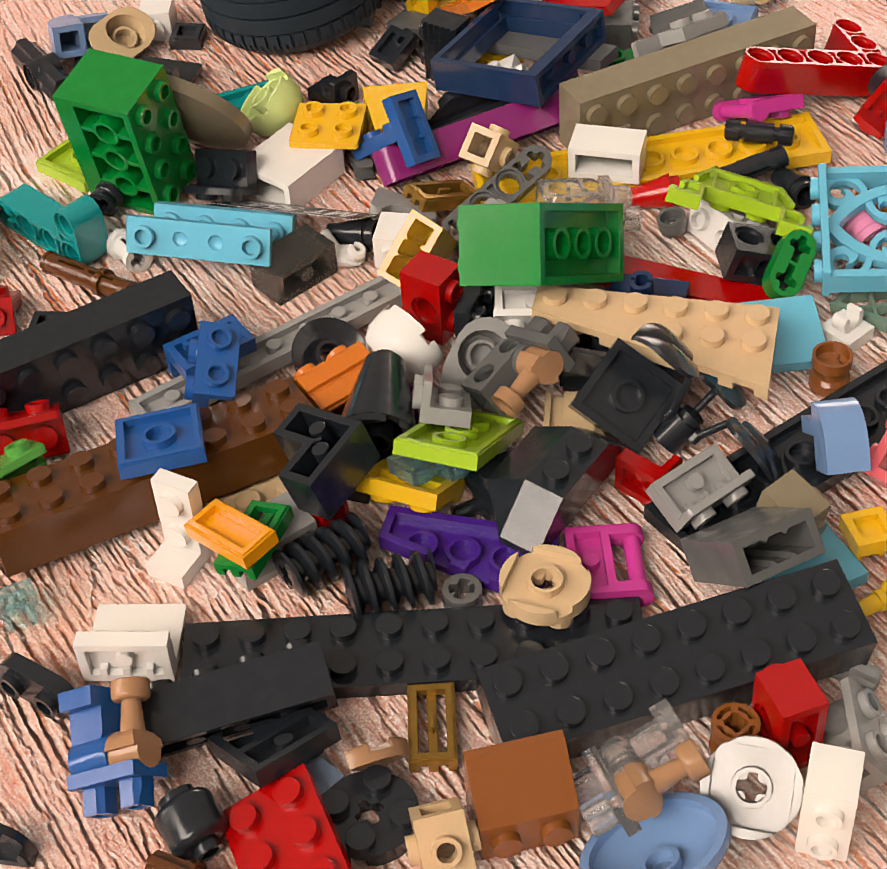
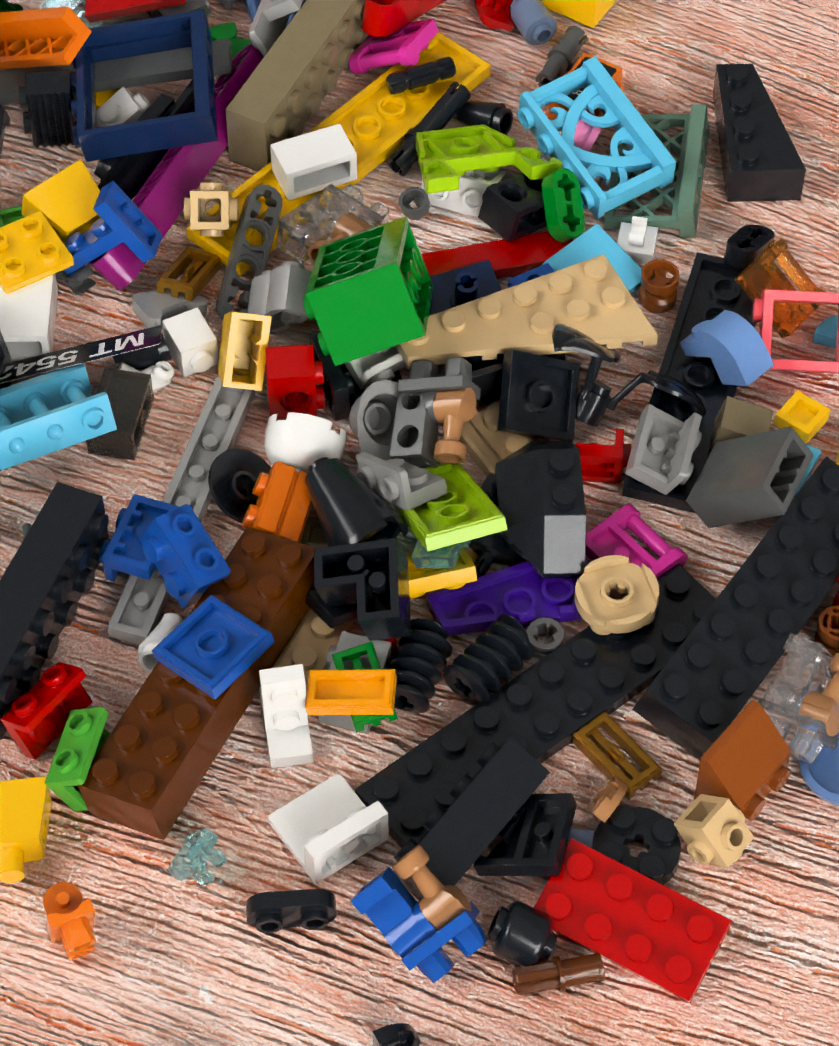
camera: 40 degrees left, 10 degrees up
(653, 193) = (379, 177): red cone -> none

